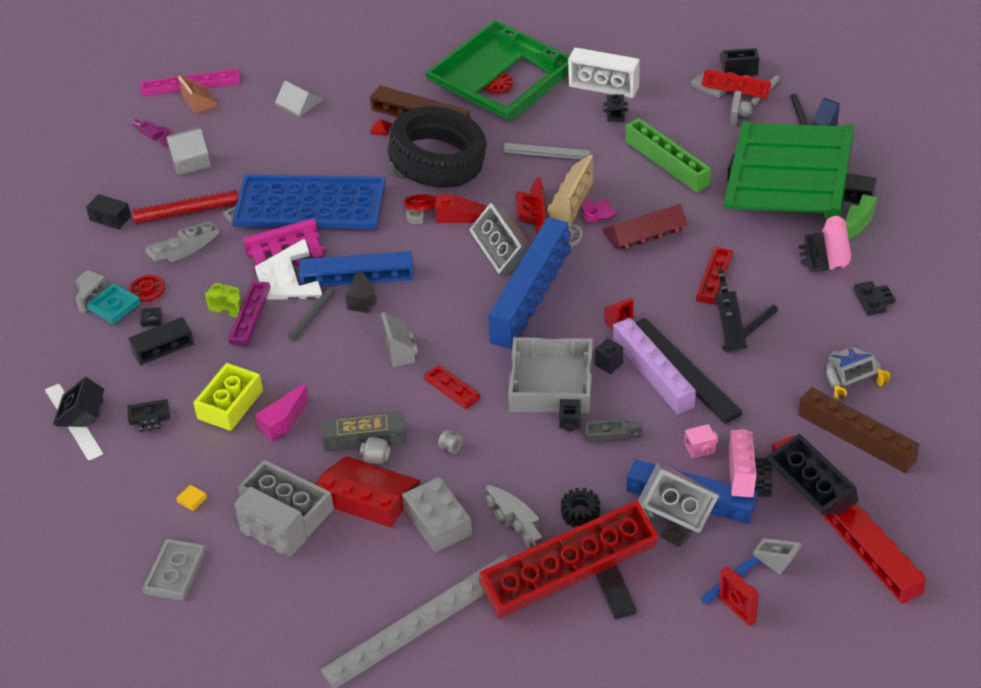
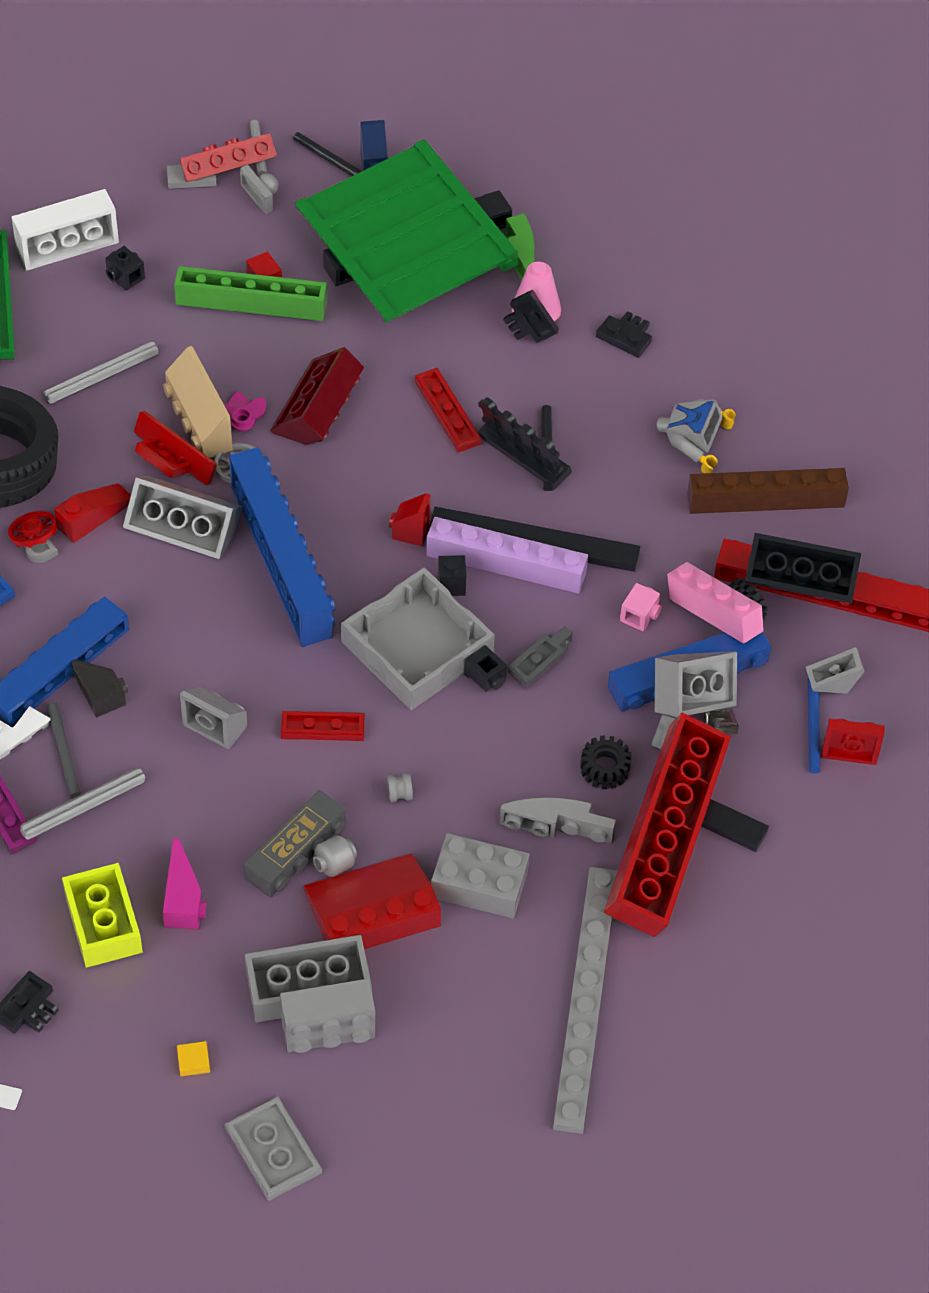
camera: 50 degrees left, 10 degrees up
(286, 340) = (82, 803): none -> light grey axle
(691, 145) = (263, 265): none -> red brick
(740, 61) = (198, 125): black slope -> none

